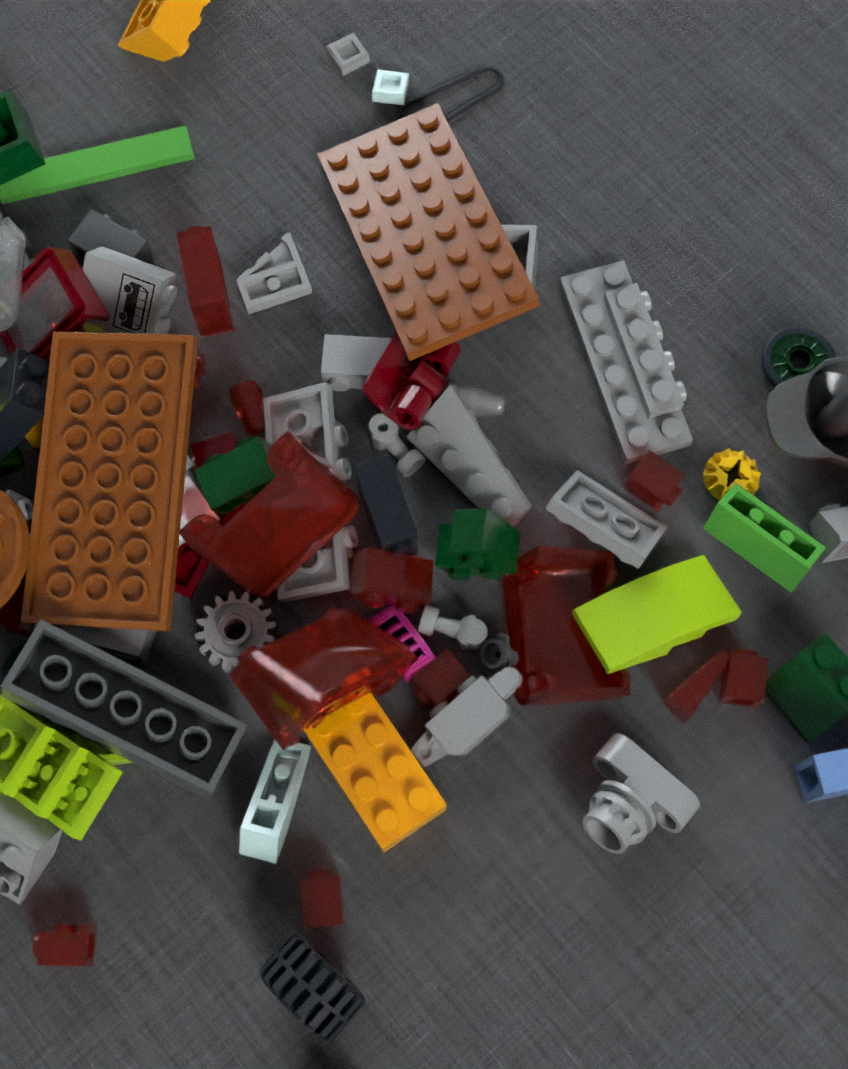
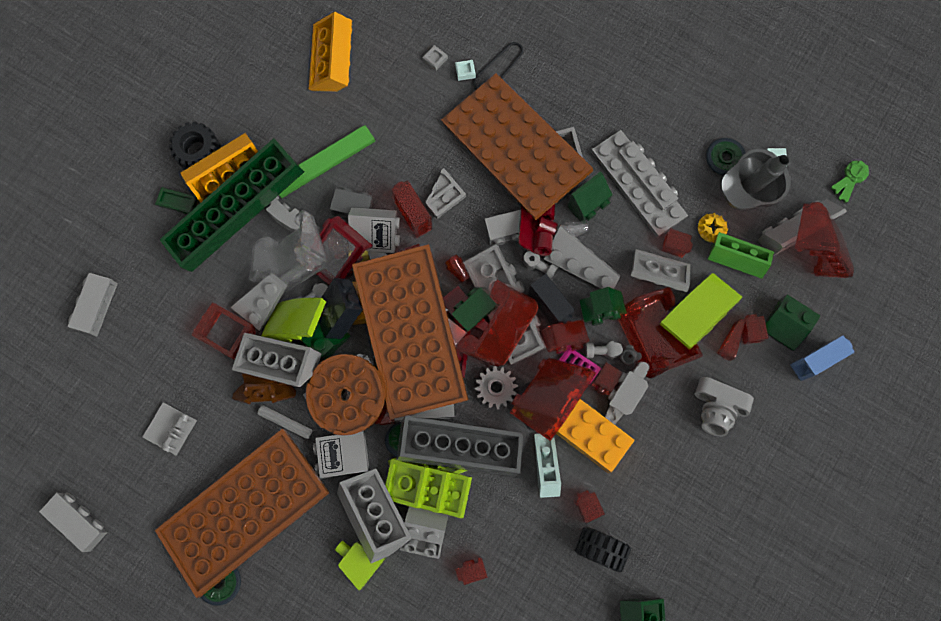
camera: 20 degrees left, 5 degrees up
(524, 355) = (590, 198): none -> dark green slope

